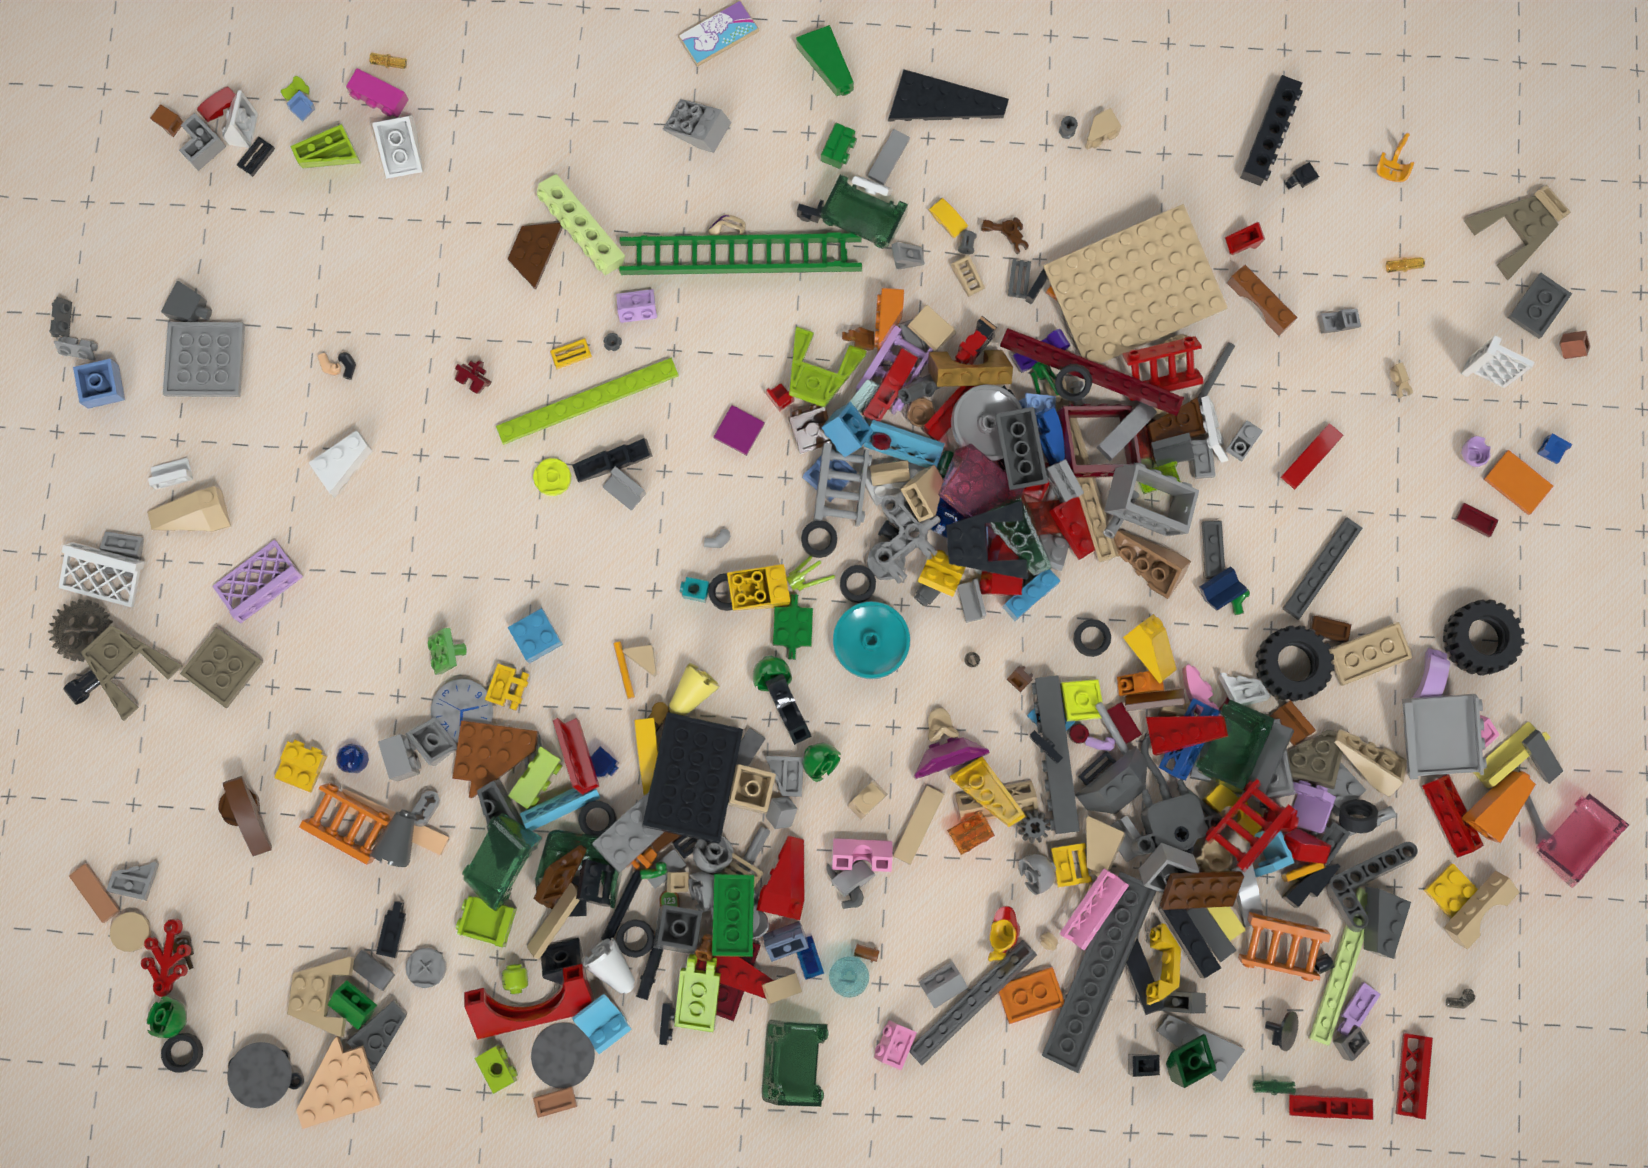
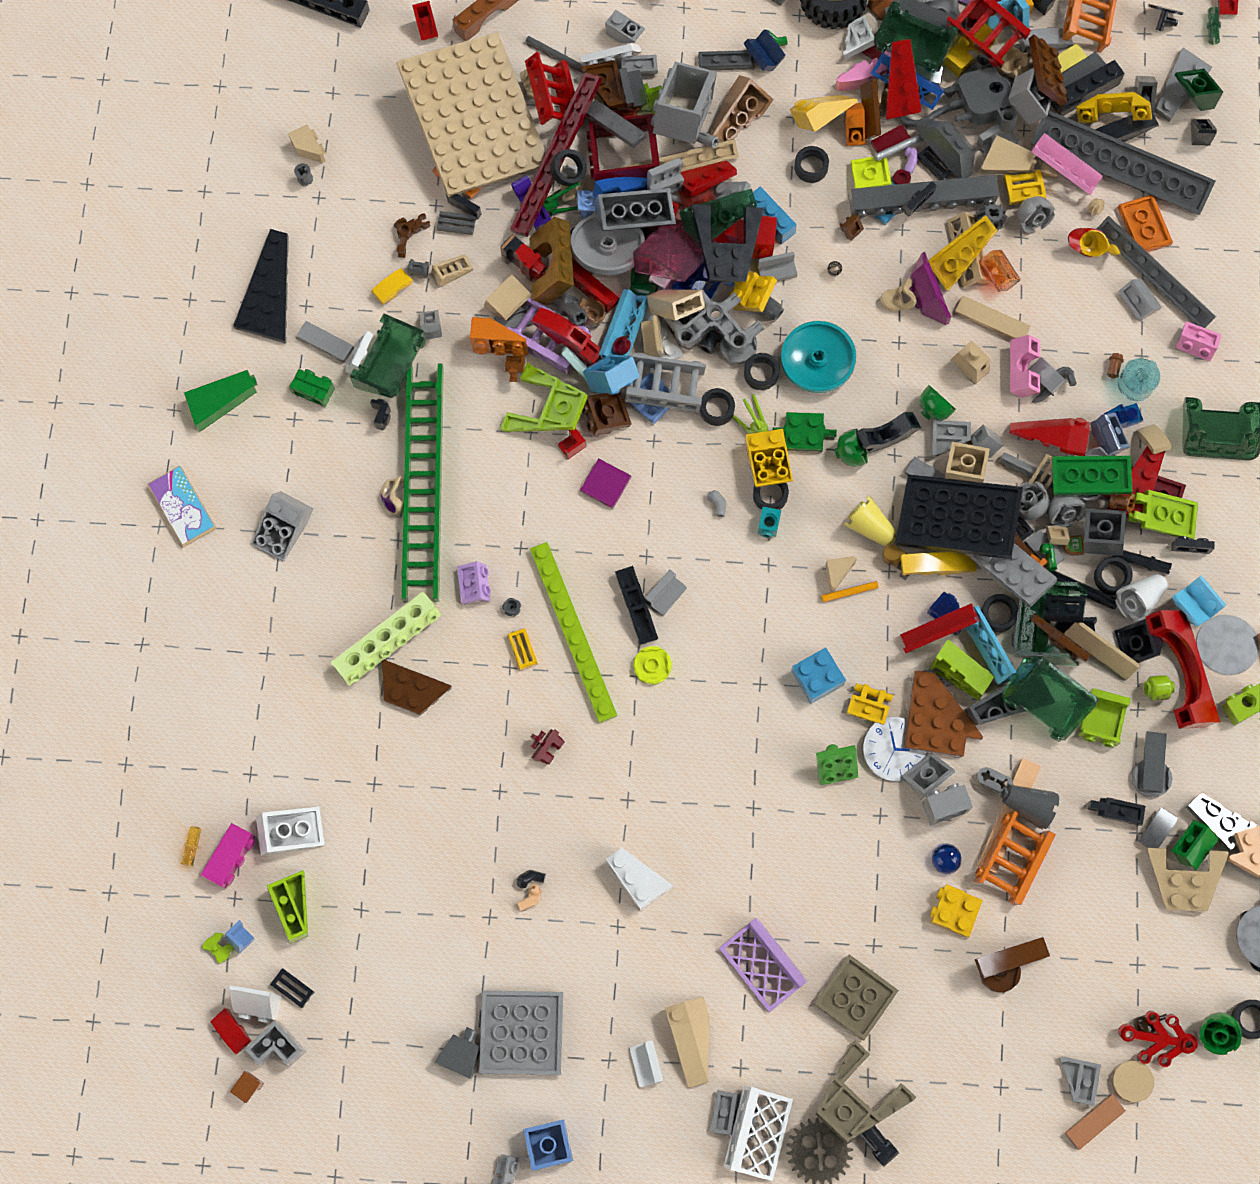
camera: 85 degrees left, 5 degrees down
(438, 968) = (1154, 761): none -> dark grey tile

